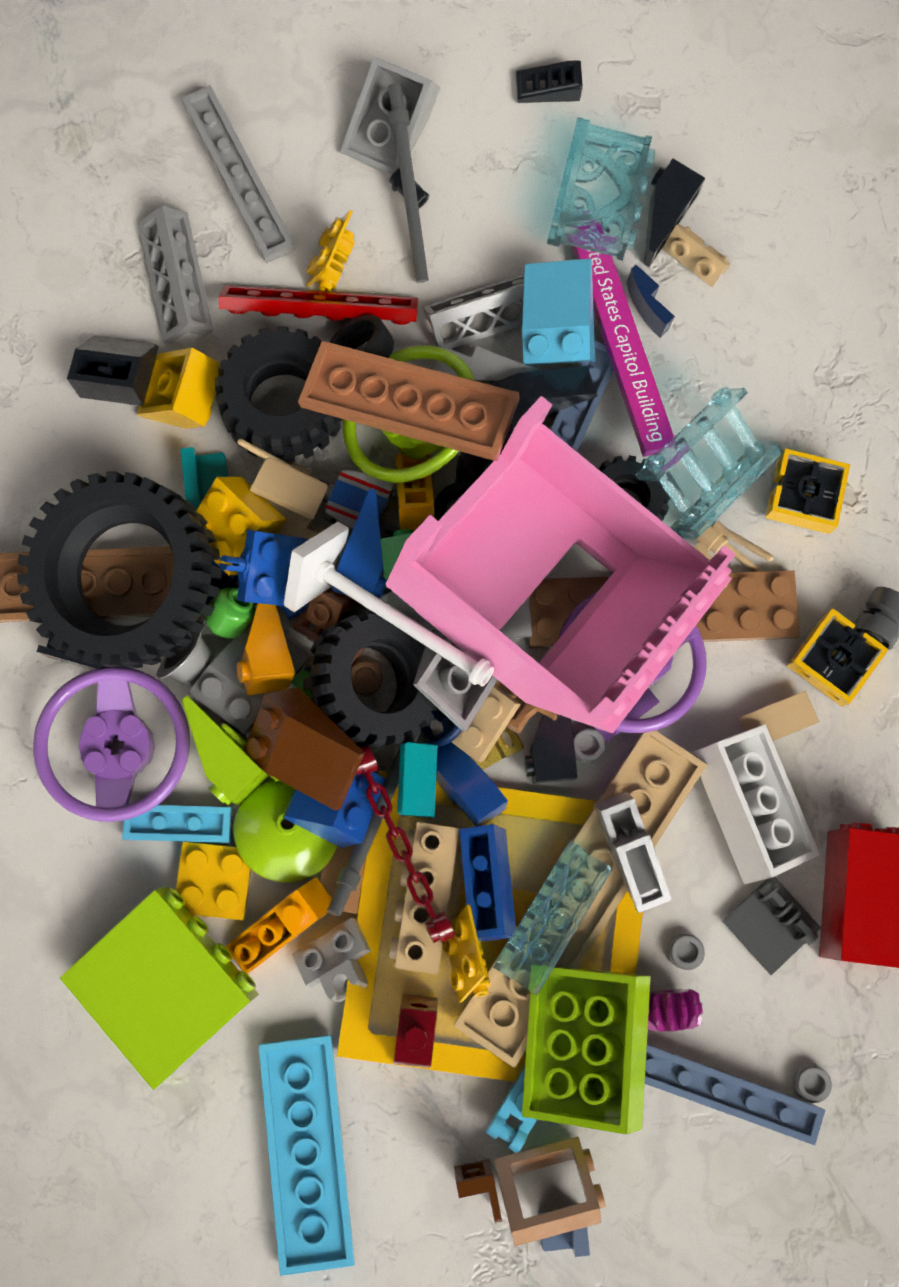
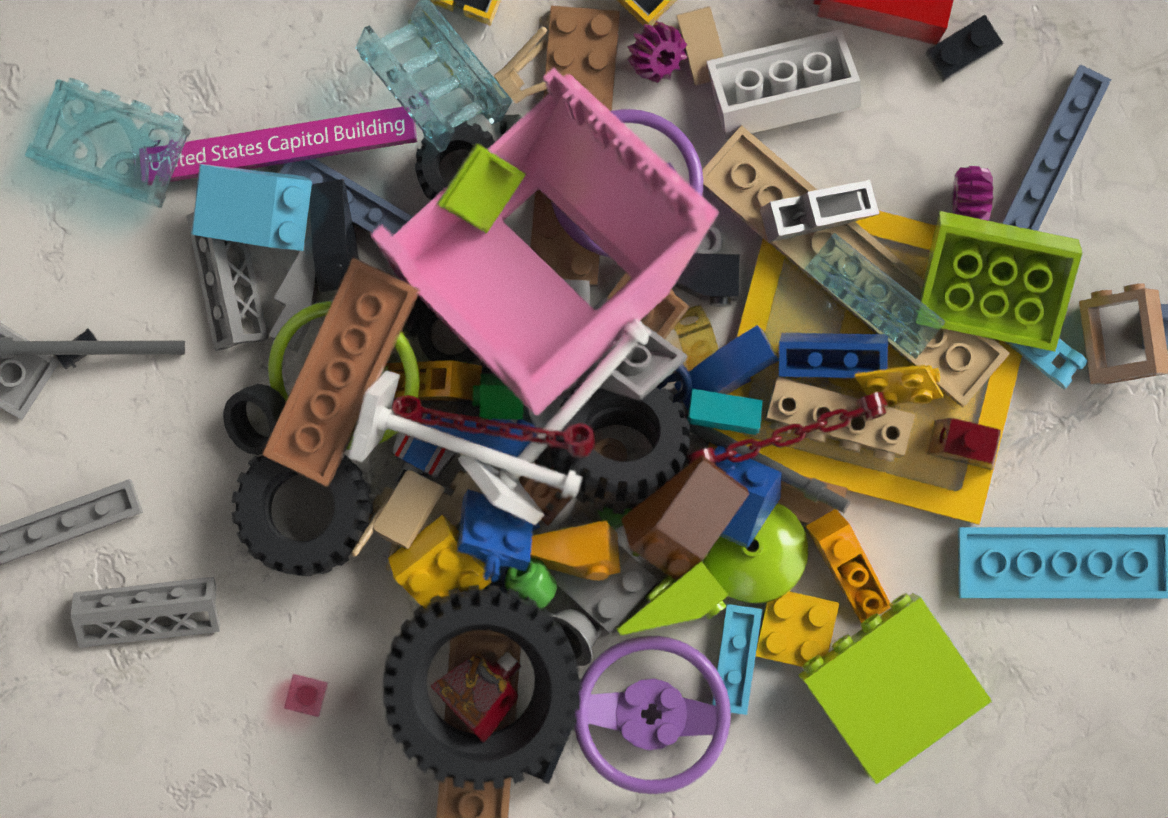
camera: 75 degrees left, 5 degrees up
(109, 423) = (306, 695): none -> clear pink plate
(113, 370) = (247, 683): black slope -> none
(117, 574) = (479, 692): none -> torso
(181, 389) = (278, 616): yellow slope -> none
(200, 473) = (380, 599): teal panel -> none
(318, 303) = (199, 460): red plate -> none
(333, 959) = (887, 515): light grey plate -> none
(335, 250) = (135, 437): yellow hinge -> none
(364, 439) = (377, 417): none -> white tile
(367, 626) = (577, 438): none -> dark red piece
(477, 1179) = (1106, 399): reddish brown panel -> none
(487, 725) = (679, 333): tan plate -> none
(604, 507) = (481, 188): none -> lime piece
(643, 292) = (231, 115): dark blue slope -> none
(671, 199) = (131, 72): black slope -> none
(686, 951) = (918, 173): light grey tile -> none
(699, 259) = (204, 41): tan hinge -> none
(770, 686) = (657, 52): none -> magenta gear
(772, 925) = (902, 85): dark grey hinge -> none
(812, 1083) = (1054, 72): light grey tile -> none
(821, 985) = (964, 48): none -> black plate

